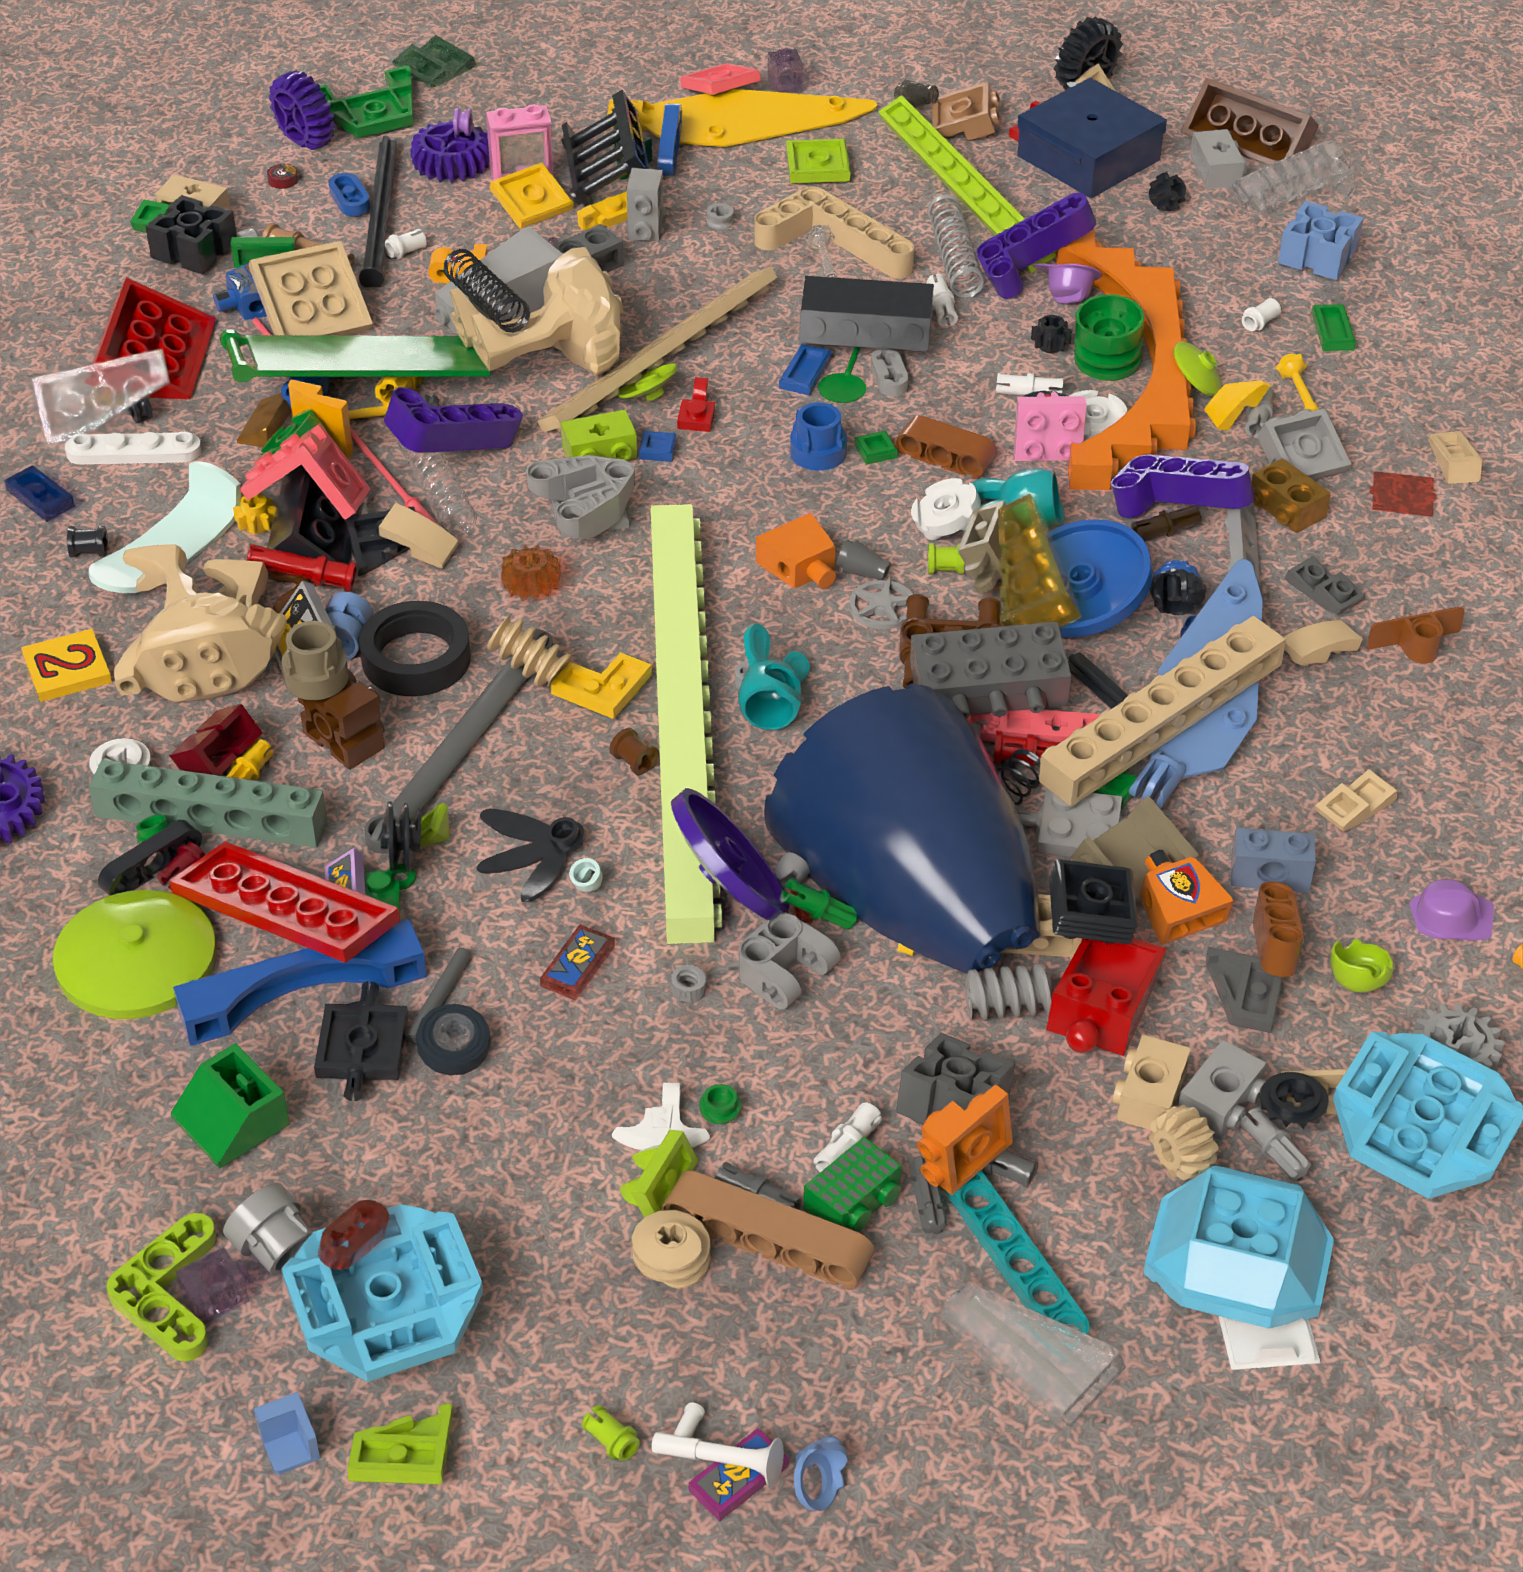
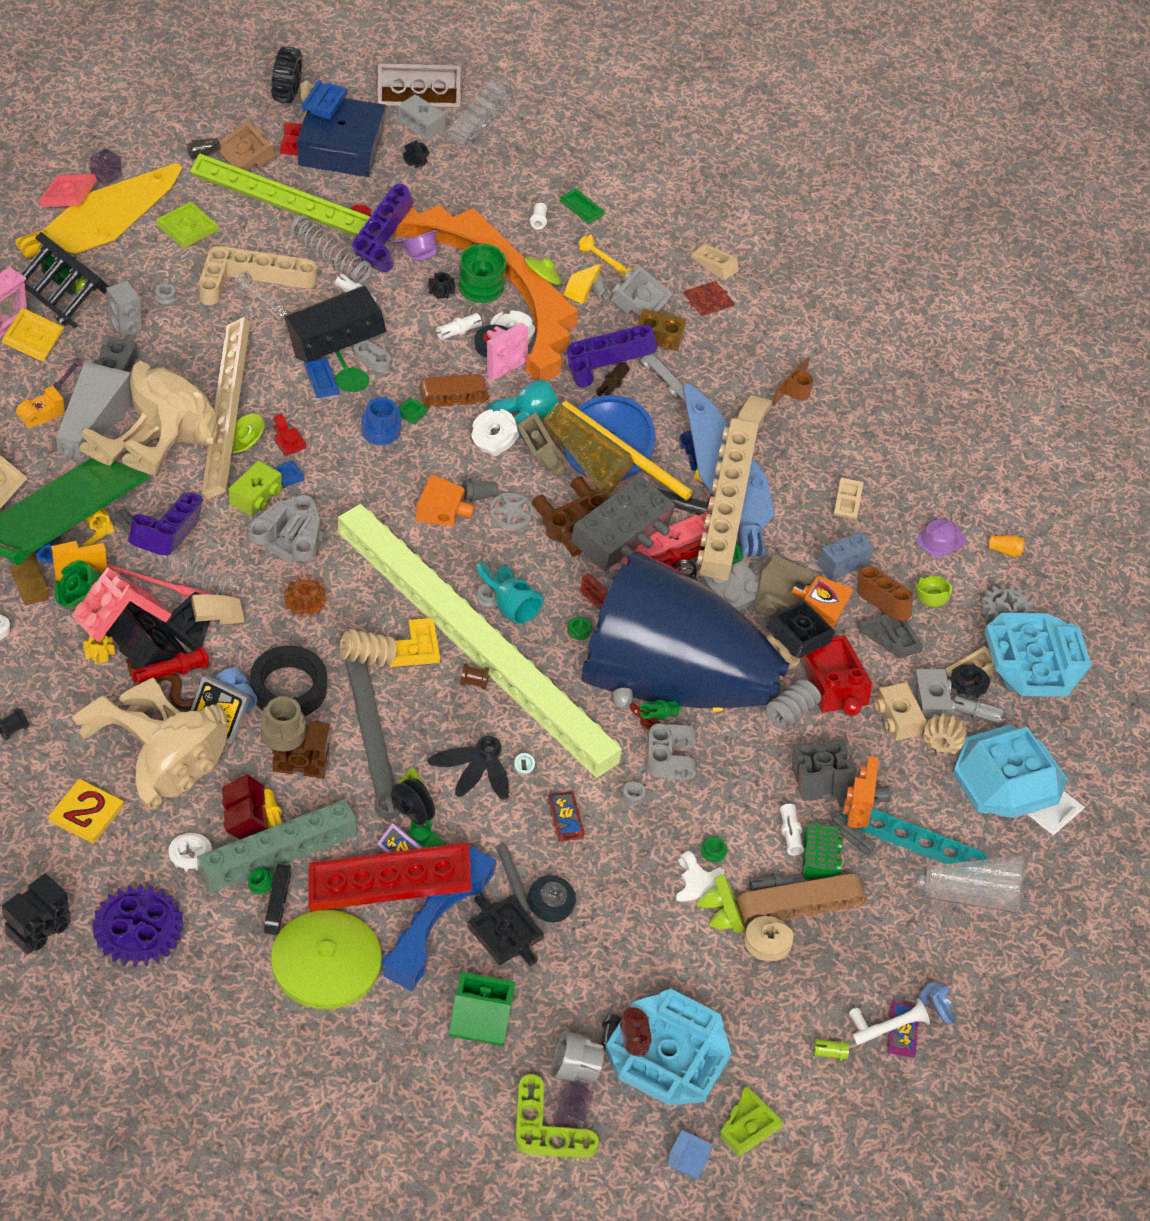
camera: 45 degrees left, 5 degrees up
(186, 856) = (298, 885): dark red pin -> none
(192, 525) = (59, 688): light aqua piece -> none
(480, 303) = (147, 429): black piece -> none
(606, 212) = (93, 319): yellow hinge -> none
(670, 139) = (84, 250): blue beam -> none
(728, 855) = (604, 712): dark purple dish -> none
(944, 559) = (521, 464): lime bush -> none
(1084, 598) = (640, 460): none -> yellow piece
(1090, 84) = (324, 99): none -> blue plate
(1177, 588) = (663, 417): black piece -> none
(1320, 240) = (532, 150): medium blue brick -> none
(1329, 591) = (729, 379): dark grey slope -> none

